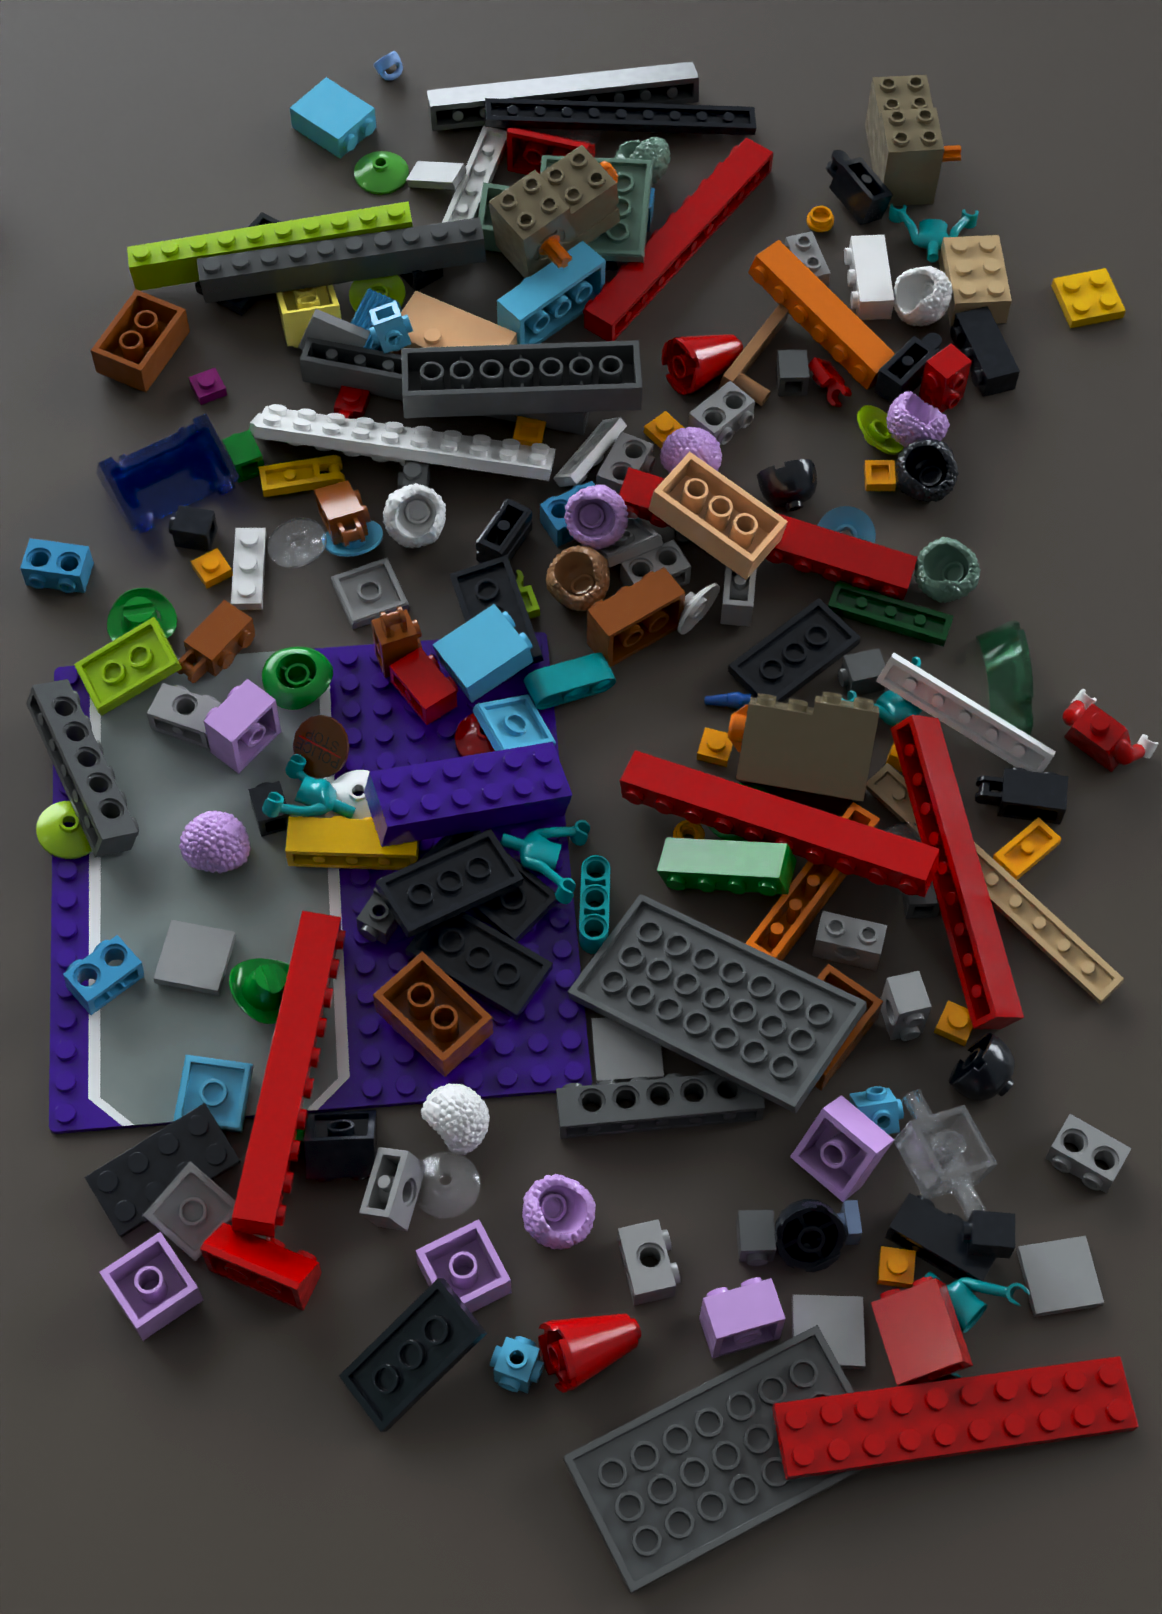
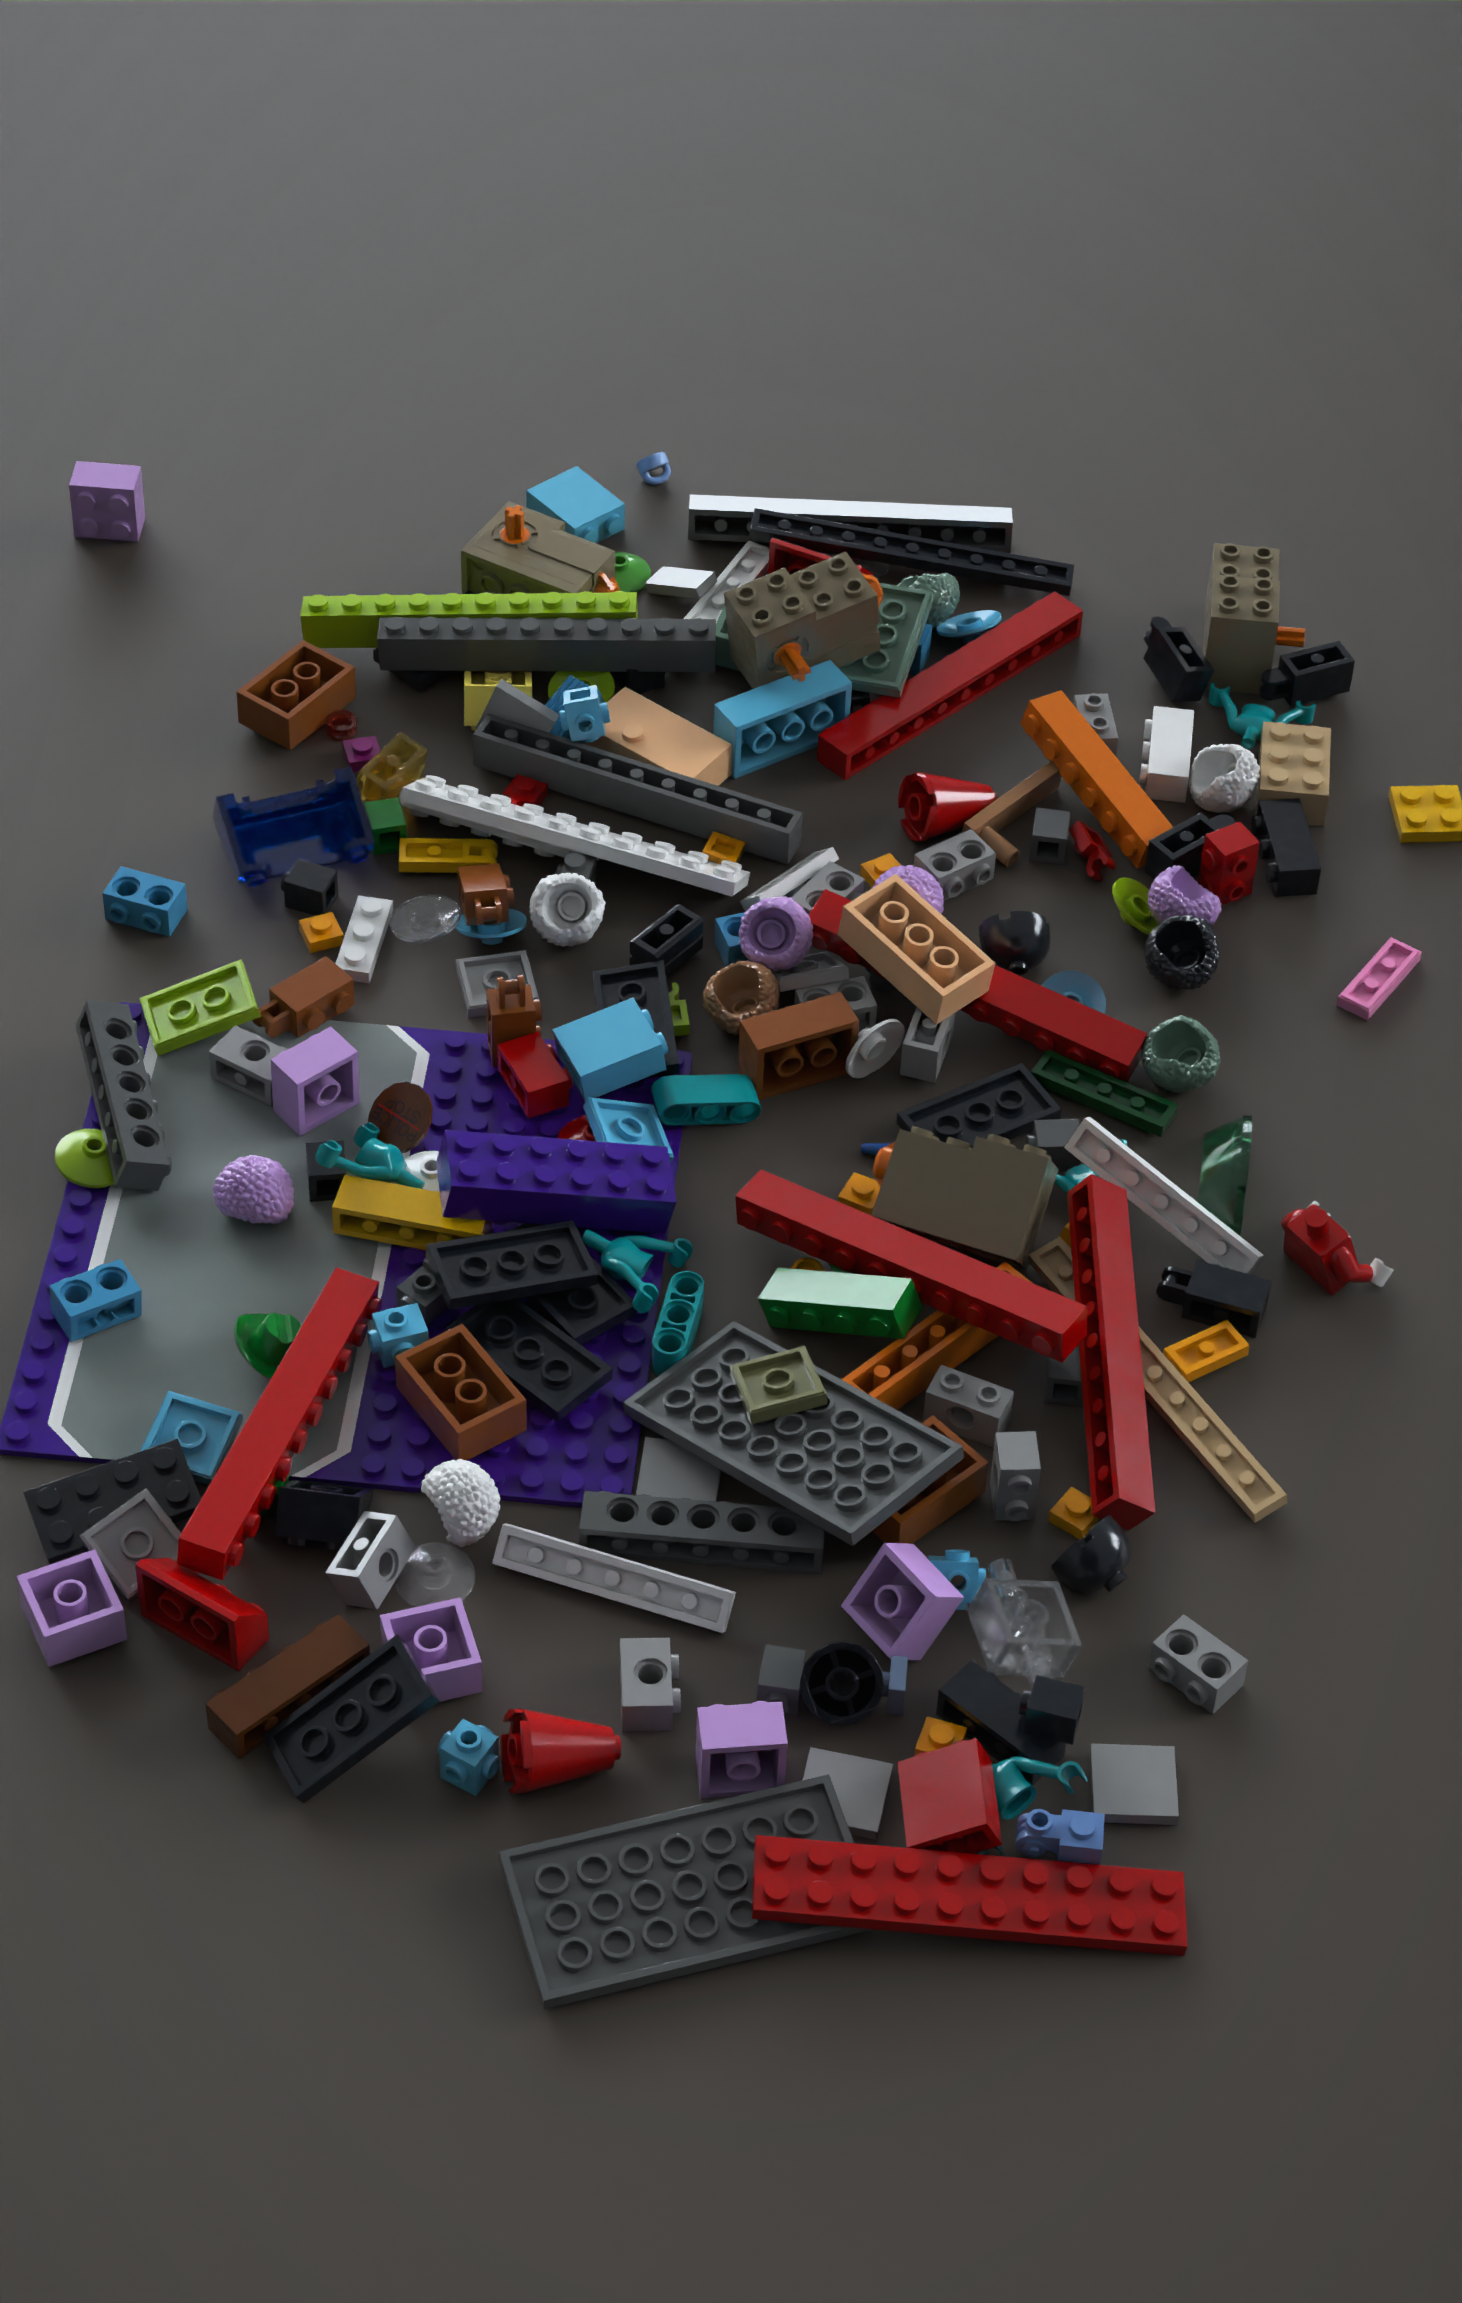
camera: 10 degrees right, 15 degrees down
(137, 607) = (227, 950): green hat -> none
(182, 354) = (337, 726): none -> clear red bush
(195, 957) = (203, 1304): light grey tile -> none
(238, 404) = (391, 769): none -> clear yellow brick
(296, 676) = (390, 1045): green hat -> none
(311, 179) = (534, 555): none -> dark tan piece
(349, 1323) = (283, 1684): none -> reddish brown brick
(368, 965) = (396, 1332): none -> medium azure brick
(521, 379) = (722, 783): dark grey brick -> none
(558, 1212) = (555, 1613): lavender hair -> none
(596, 1162) = (614, 1577): none -> white plate
(682, 178) = (969, 625): none -> medium azure dish
(696, 959) = (778, 1385): none -> olive tile
(820, 219) = (1125, 689): light orange plate -> none
(879, 475) = (1127, 954): light orange plate -> none
(968, 183) = (1309, 674): none -> black brick
(1026, 1346) = (1071, 1836): none -> medium blue brick
(1083, 462) = (1379, 978): none -> bright pink tile

